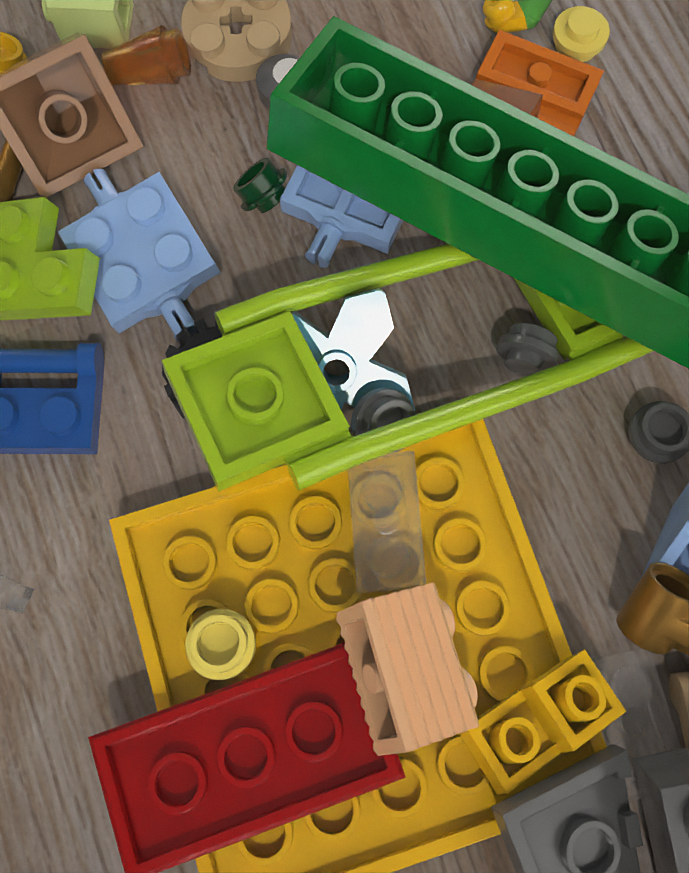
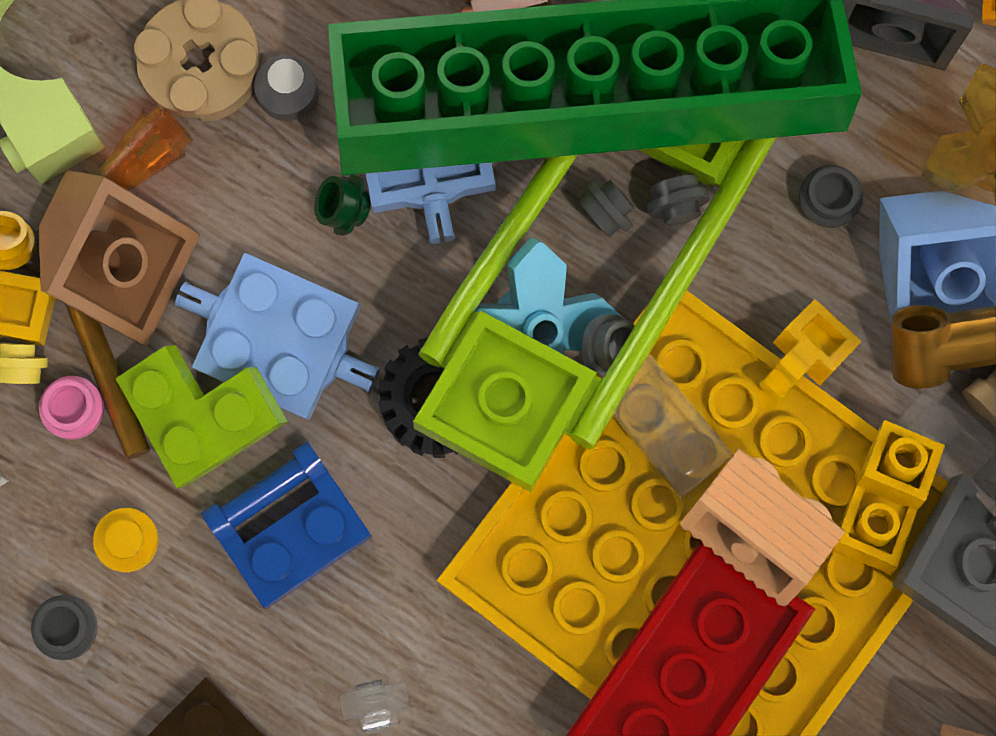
camera: 35 degrees left, 5 degrees up
(220, 644) = (604, 611): light yellow plate -> none
(466, 318) = (607, 206): none -> dark grey plate
(561, 539) = (811, 345): none -> yellow plate

